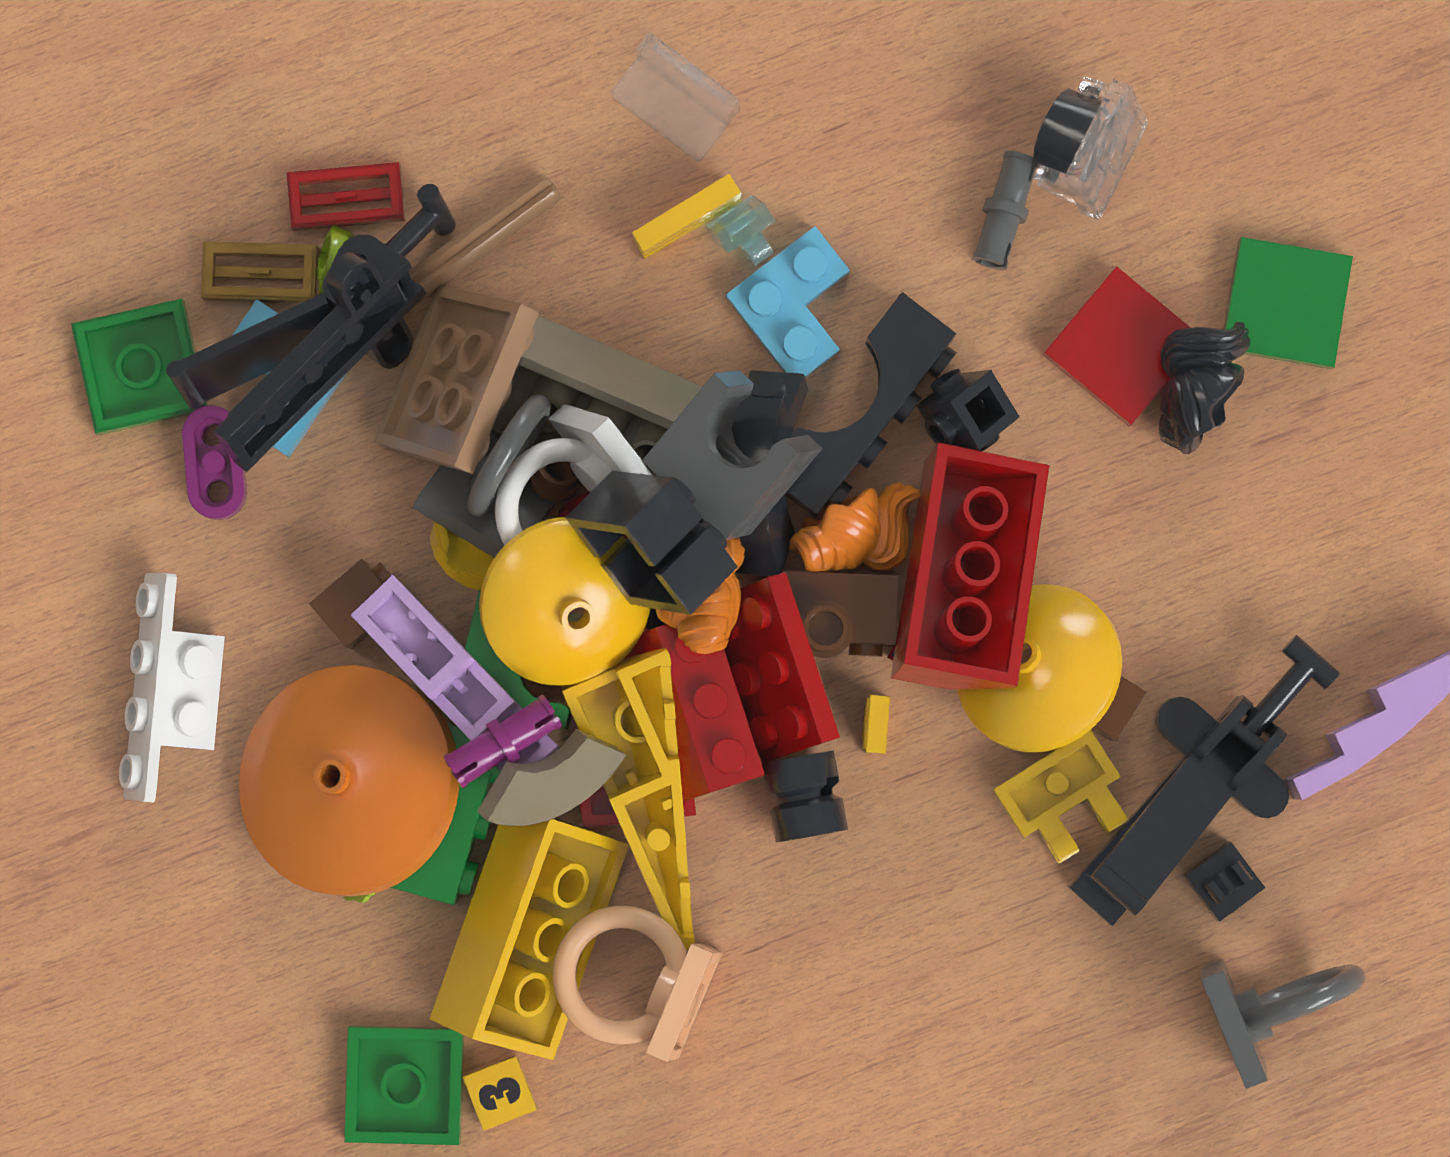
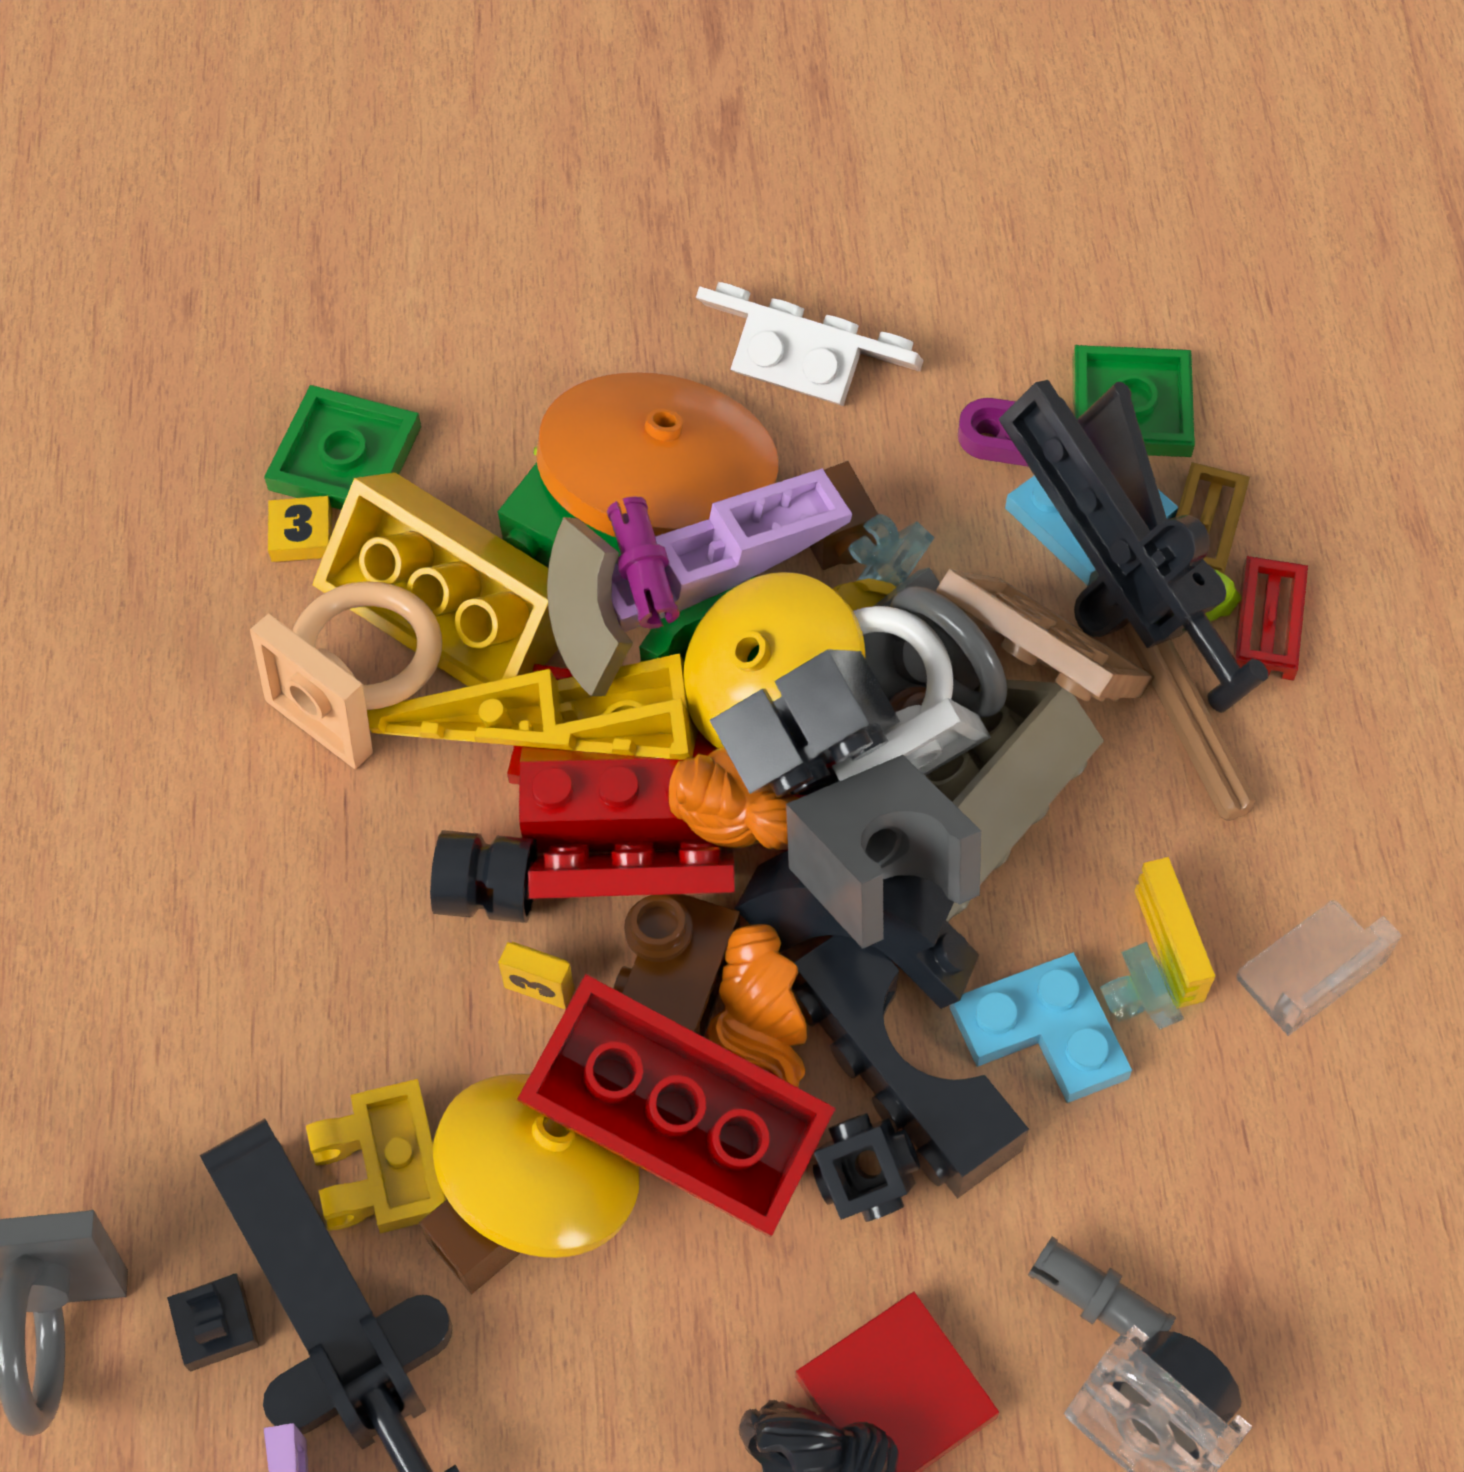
camera: 110 degrees right, 25 degrees down
(398, 536) = (895, 551): none -> clear light blue tile

